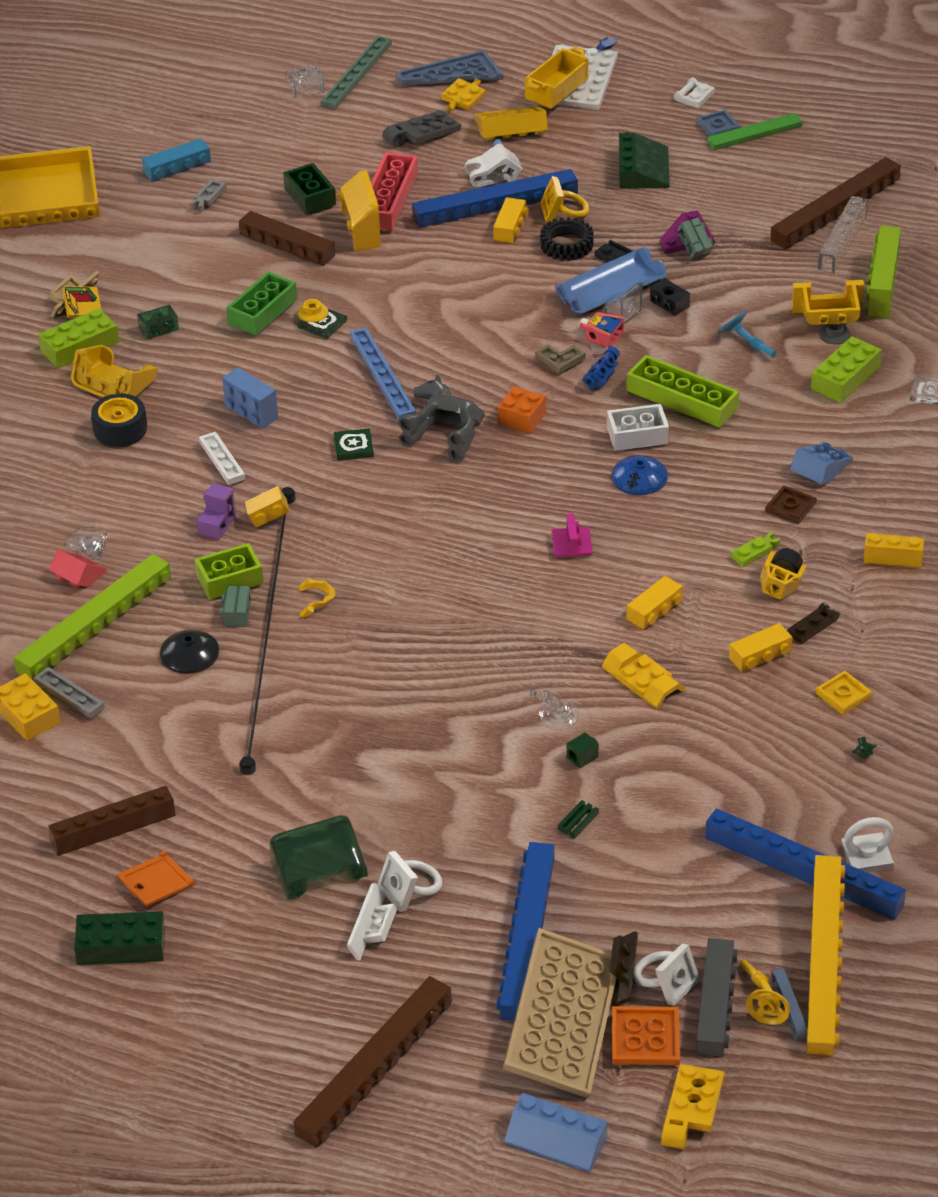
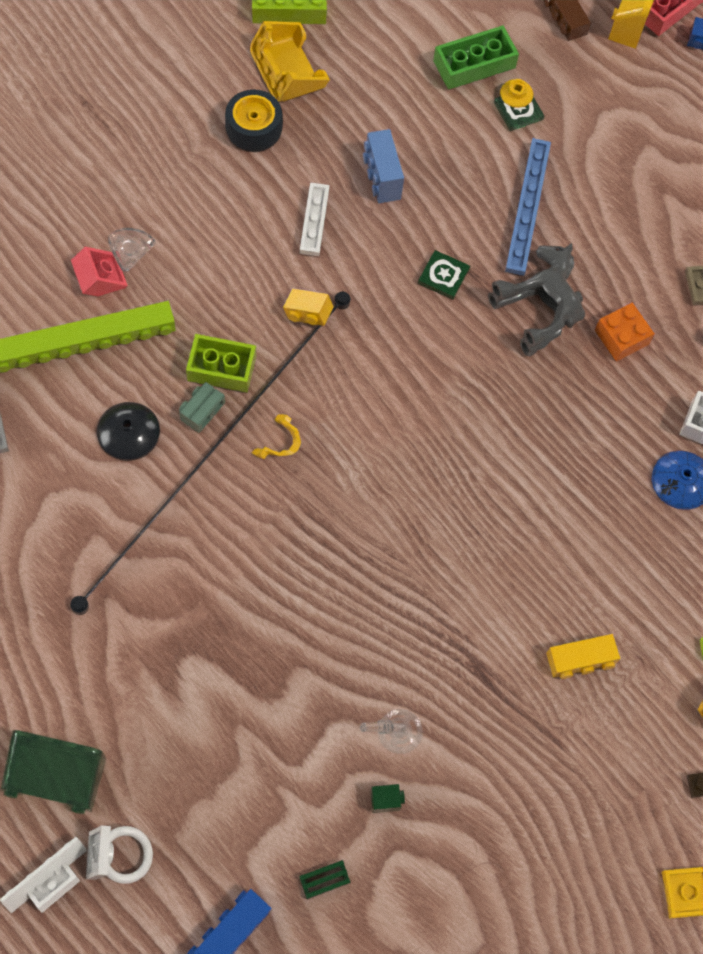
camera: 25 degrees right, 25 degrees up
(158, 322) = (371, 23): clear green brick -> none
(218, 511) = (261, 287): medium lavender brick -> none
(572, 539) = (560, 524): dark pink bracket -> none
(641, 674) = (510, 738): yellow piece -> none
(760, 647) = (645, 783): yellow brick -> none

